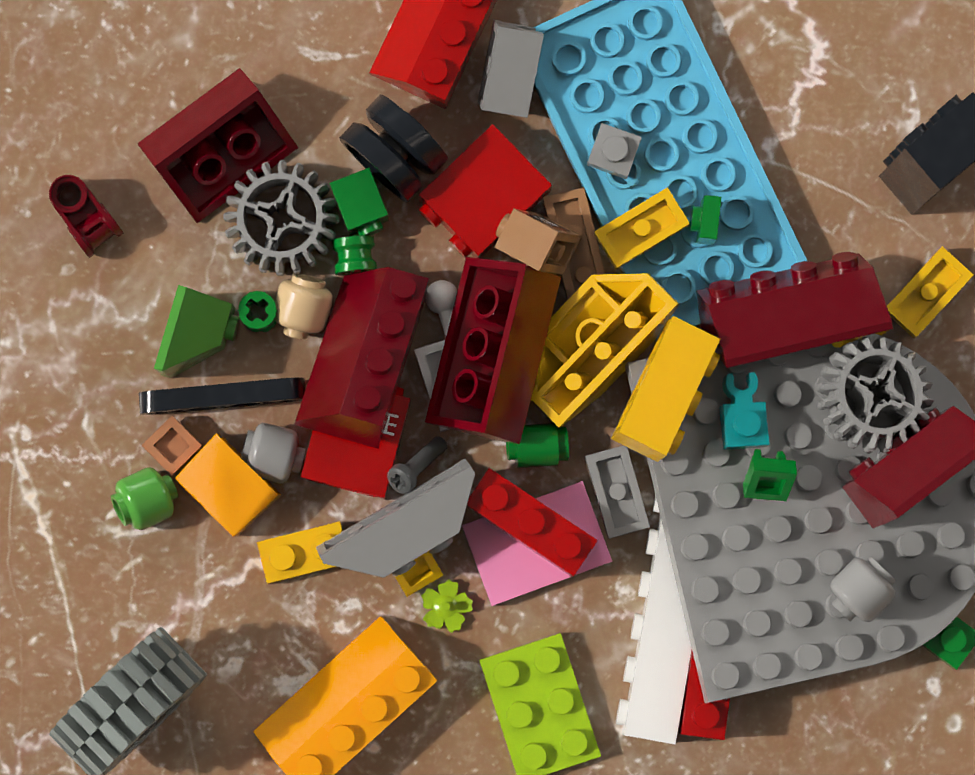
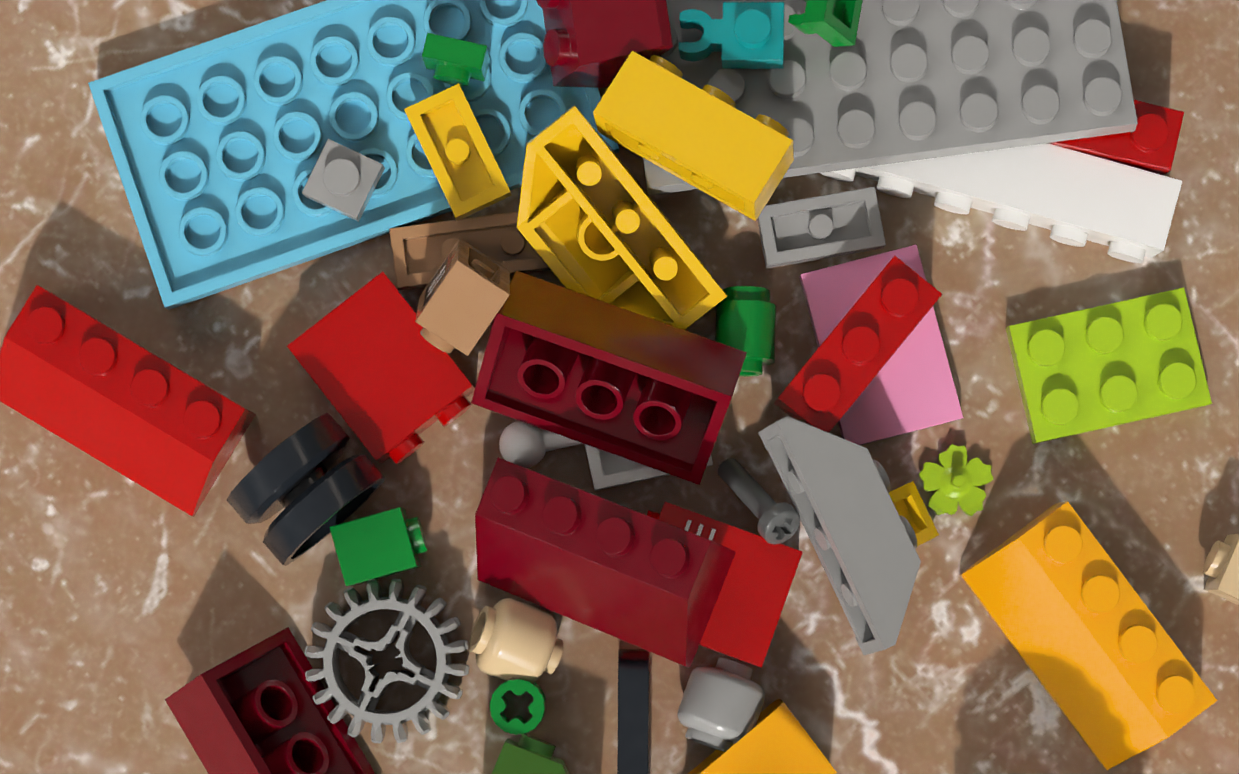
camera: 80 degrees left, 0 degrees up
(295, 552) = (861, 683): yellow plate -> none
(354, 254) = (451, 561): green wheel -> none
(510, 69) = (209, 314): light grey hinge -> none

